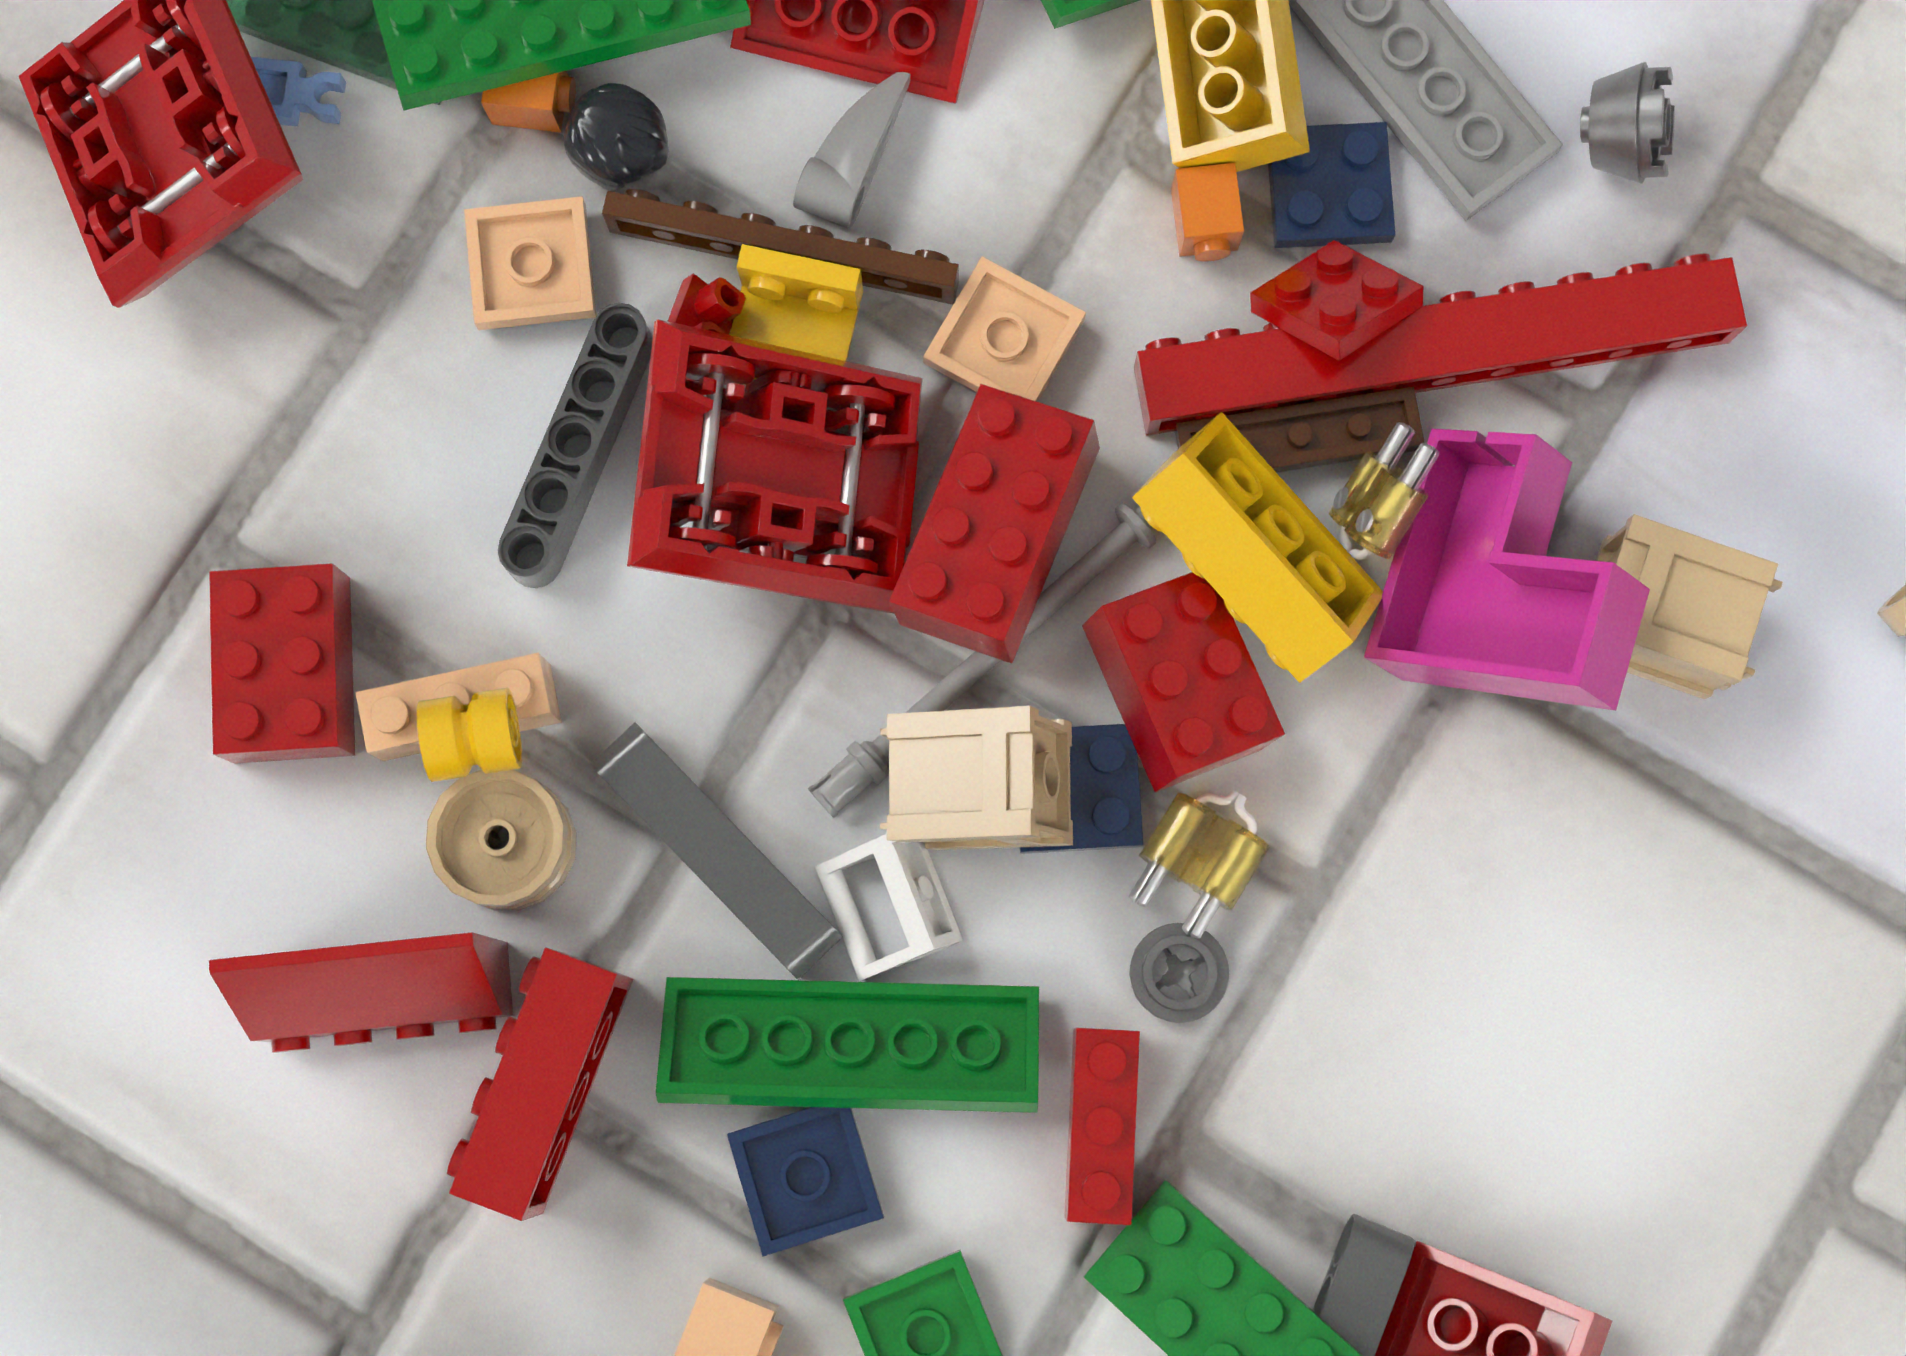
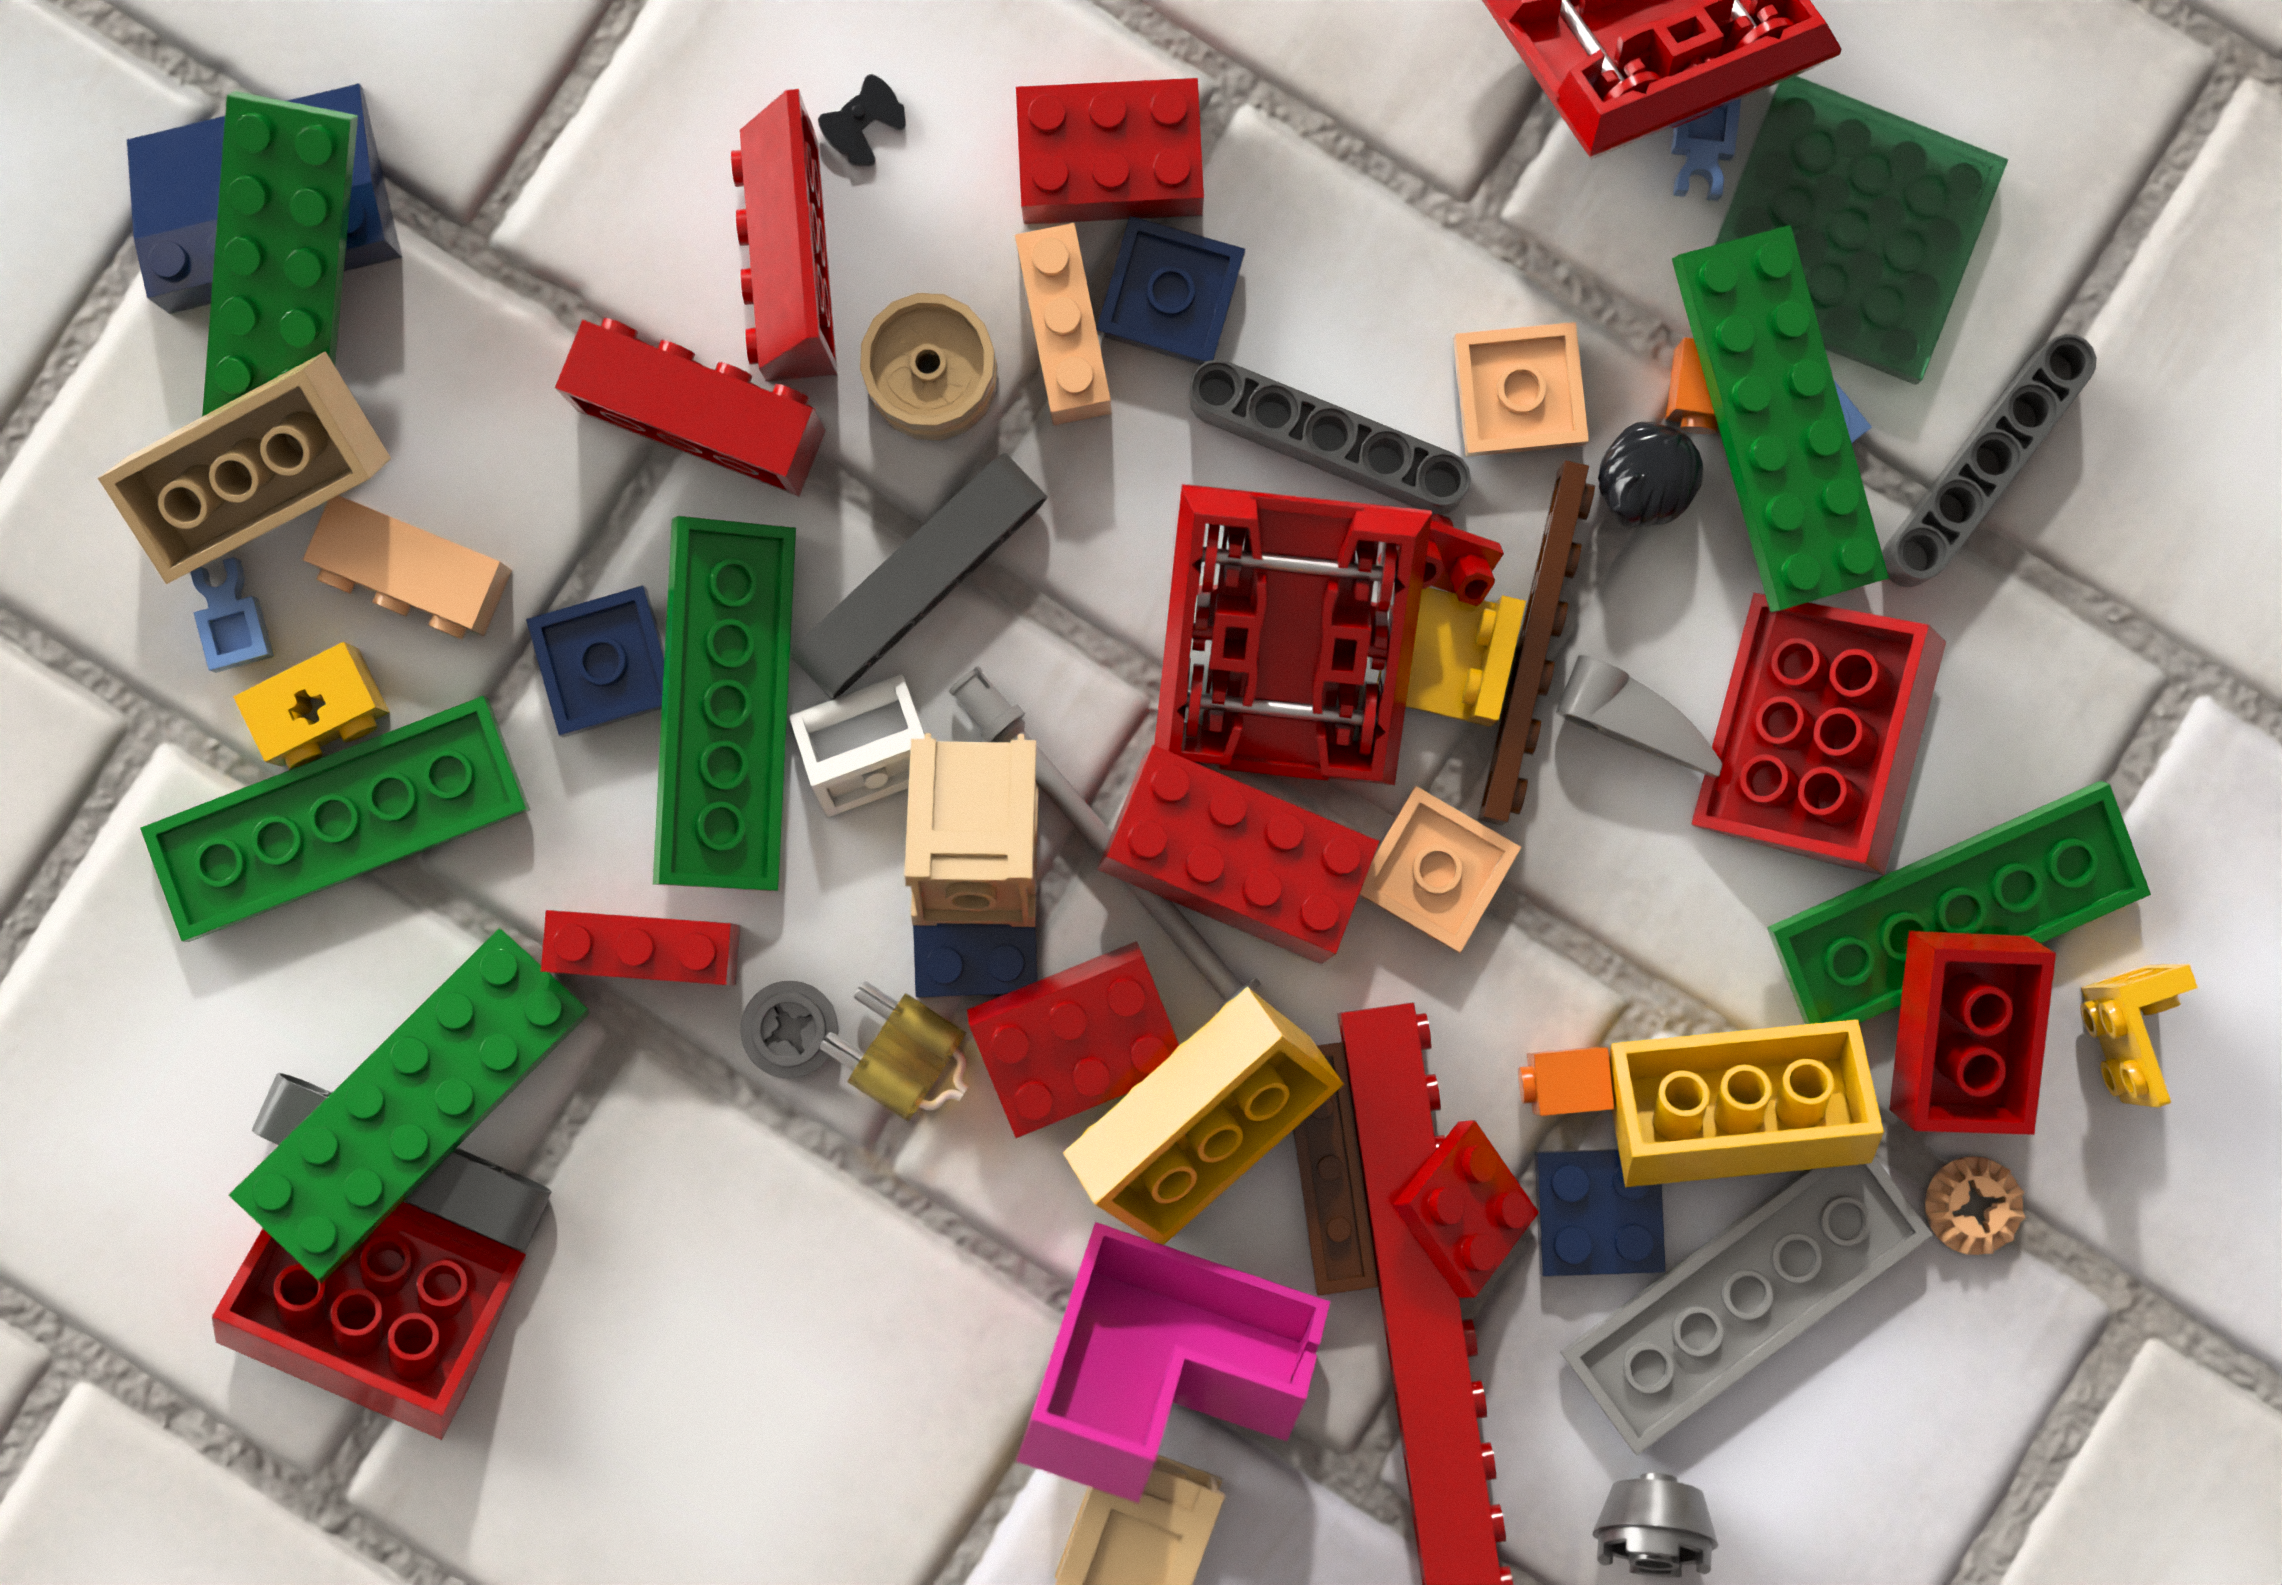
camera: 90 degrees right, 5 degrees up
(249, 937) = (845, 127): none -> black piece
(426, 602) = (1170, 291): none -> dark blue plate
(469, 734) = (1022, 332): yellow wheel -> none
(1381, 497) = (1257, 1247): clear yellow piece -> none

